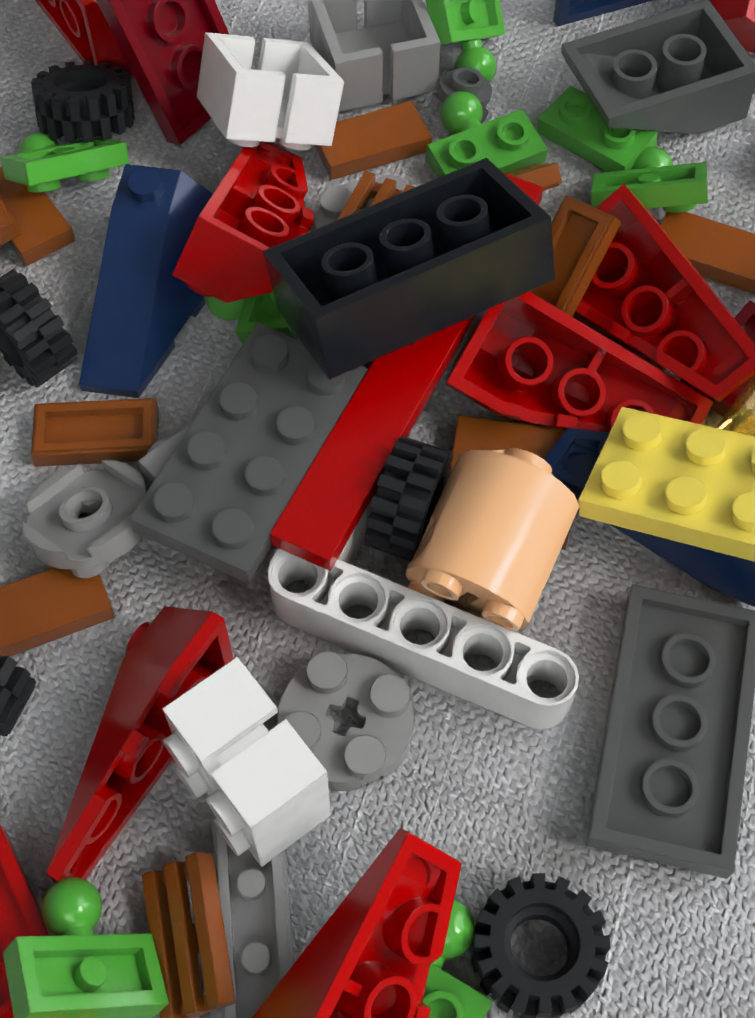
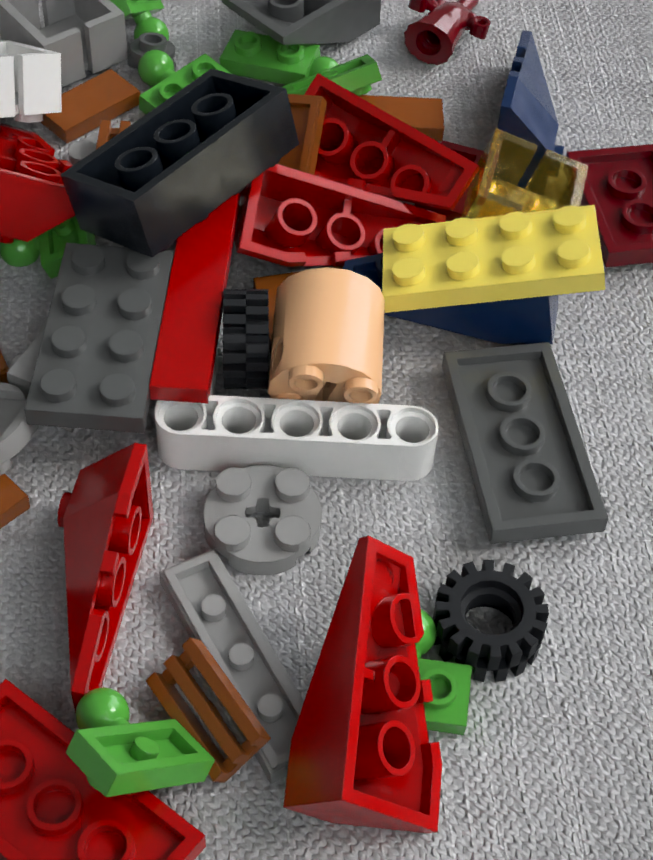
camera: 25 degrees left, 10 degrees down
(257, 780) = (226, 570): white piece -> none

